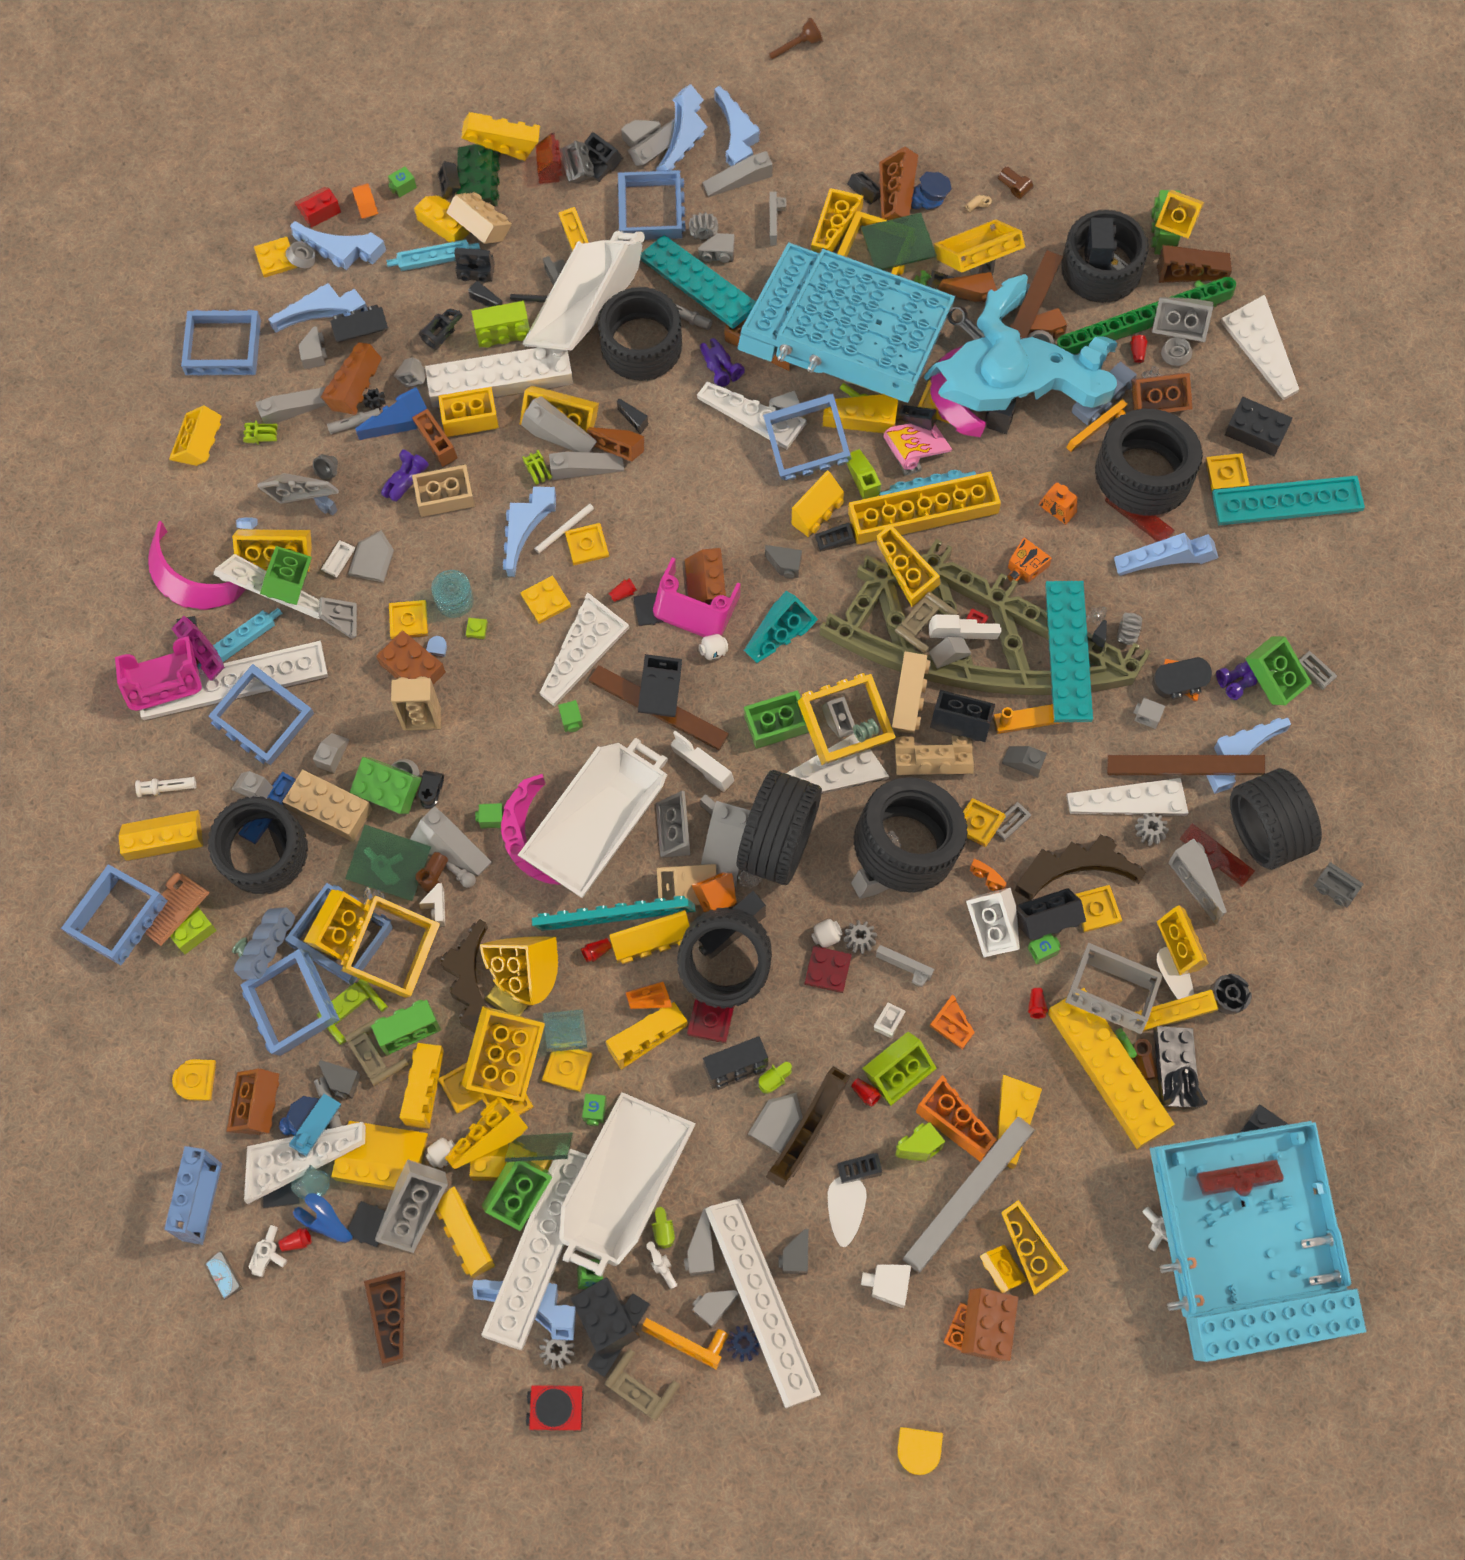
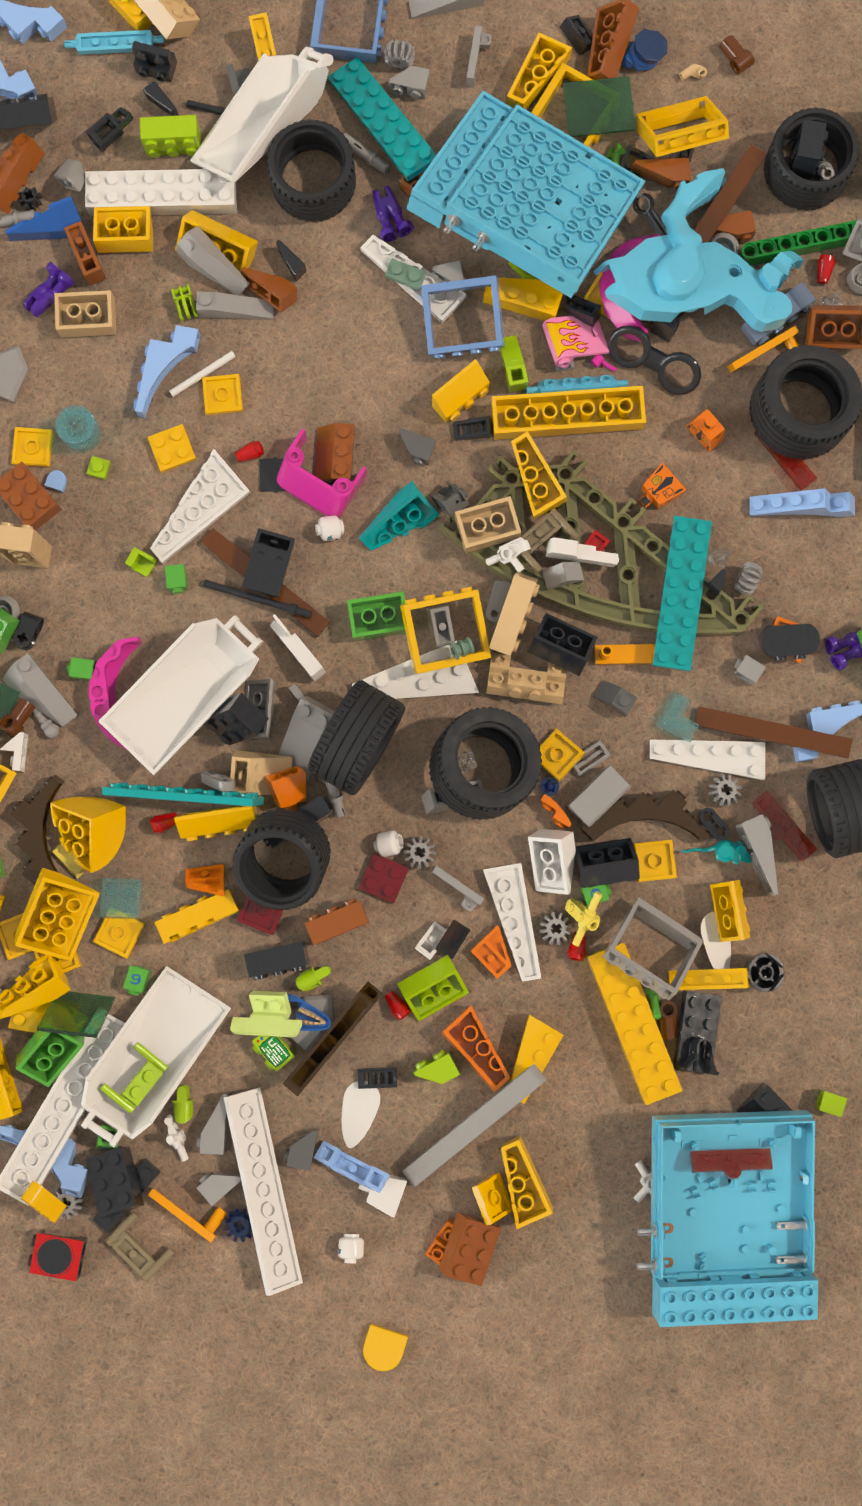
camera: 10 degrees right, 15 degrees up
(532, 707) = (140, 562): none -> lime panel
(537, 1342) = (43, 1201): none -> yellow beam
(616, 1210) = (140, 1084): none -> lime plate
(647, 896) = (217, 781): none -> light grey beam
(655, 833) = (237, 720): none -> black brick
(689, 726) = (291, 608): none -> black bar
(737, 1119) = (268, 1017): none -> yellowish green plate
(744, 410) = (405, 274): none -> sand green plate
(746, 1155) = (274, 1050): none -> brick
(766, 896) = (335, 798): none -> light grey pin
(776, 1114) = (311, 1017): none -> blue animal
(790, 1015) = (336, 921): none -> dark orange brick
(827, 601) = (450, 499): none -> dark grey hinge
(850, 1264) = (351, 1167): none -> light blue slope
(865, 1348) = (350, 1248): none -> white head
(868, 615) = (487, 524): none -> tan brick
(890, 688) = (497, 599): none -> light grey piece
(894, 637) = (509, 552): none -> white piece
(910, 1014) = (452, 939): none -> black sticker
(943, 459) = (598, 360): none -> dark pink hand
(963, 974) = (511, 902): none -> white wing
(978, 852) = (549, 786): none -> clear blue tile
(996, 449) = (654, 360): none -> black bar
(1014, 995) = (555, 935): none -> light grey gear
(1027, 852) = (598, 796): none -> light grey slope
(1040, 968) = (584, 916): none -> light yellow piece
(1086, 772) = (673, 720): none -> clear light blue plate
(1120, 261) = (825, 173): none -> light grey pin
(1150, 860) = (710, 826): none -> black beam
(1166, 885) = (727, 850): none -> teal animal
(1327, 1114) = (831, 1103): none -> lime panel

